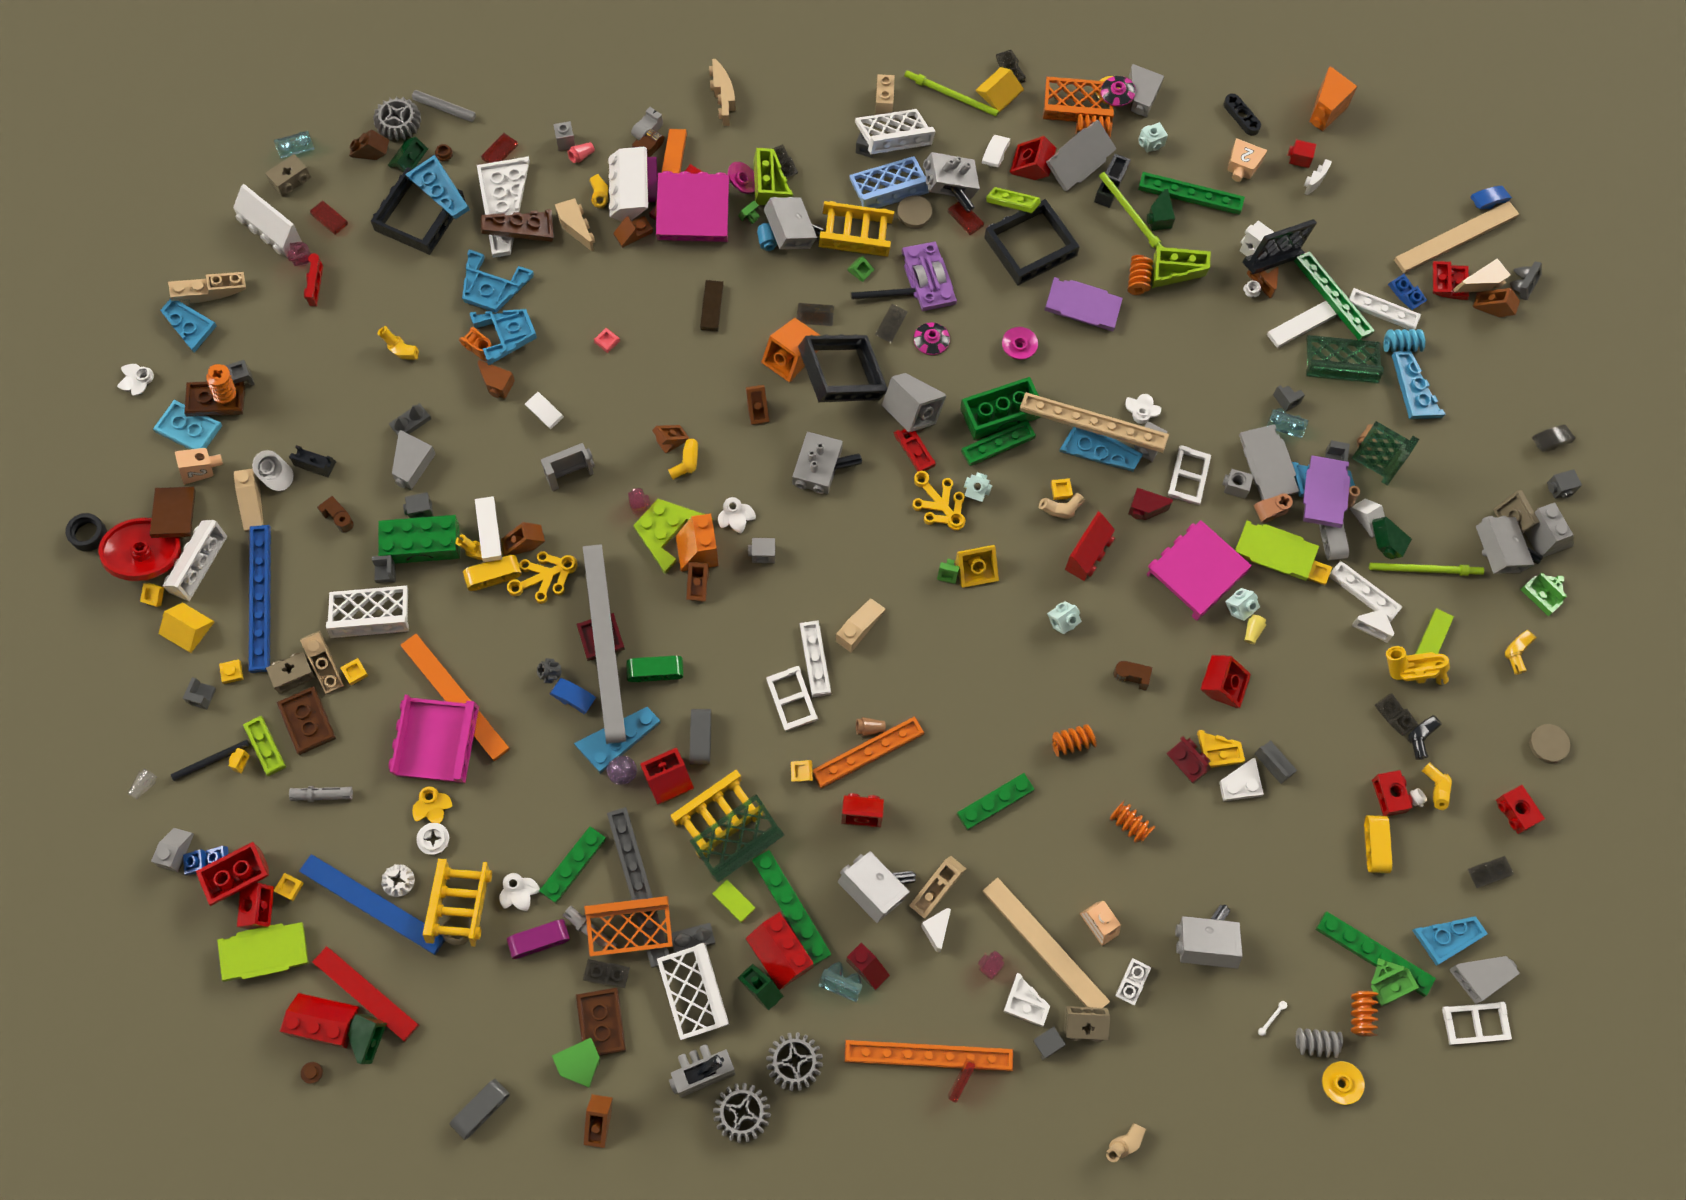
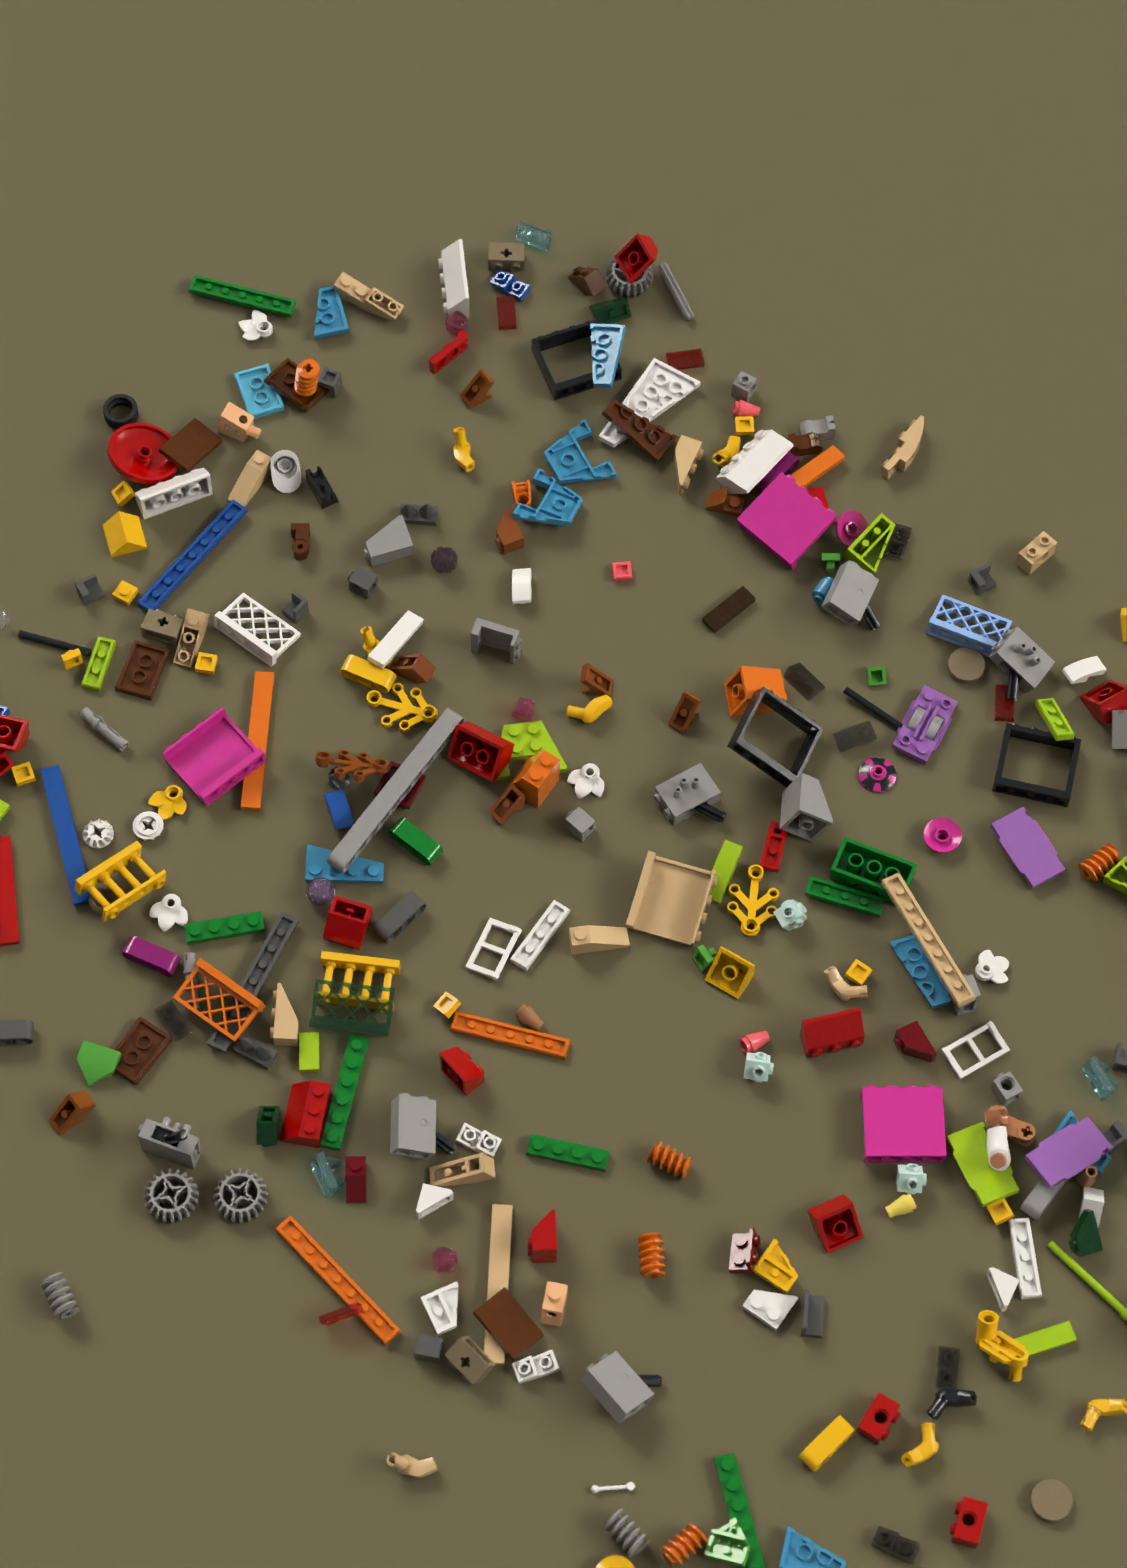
camera: 45 degrees right, 5 degrees down
(100, 364) = (242, 296): none -> green plate
(309, 196) = (509, 286): none -> blue slope
(364, 290) = (477, 389): none -> dark orange slope
(394, 98) = (636, 256): none -> red slope
(419, 539) = (340, 606): green brick -> none
(443, 152) = (639, 328): reddish brown plate -> none
(465, 438) = (444, 559): none -> piece
(552, 648) = (363, 761): none -> dark orange plant
(592, 164) = (744, 426): none -> yellow plate
(636, 559) = (479, 750): none -> red slope
(695, 894) = (286, 1023): none -> tan slope
(711, 988) = (234, 1093): white fence -> none
(853, 243) = (896, 656): yellow fence -> none
(886, 549) = (671, 900): none -> tan panel
(895, 139) = (1009, 597): white fence -> none
(898, 498) = (725, 867): none -> lime slope
(921, 80) = (1082, 565): lime bar -> none
(924, 852) = (477, 1140): none -> white slope
(1041, 603) = (752, 1042): none -> coral cone
(1050, 881) = (543, 1240): none -> red slope
(1085, 969) = (508, 1324): none -> reddish brown tile
(1134, 673) = (770, 1154): reddish brown leg -> none
(1269, 462) = (1050, 1093): light grey piece -> none
(1272, 523) = (997, 1141): none -> piece
(1418, 797) = (896, 1440): white plate -> none

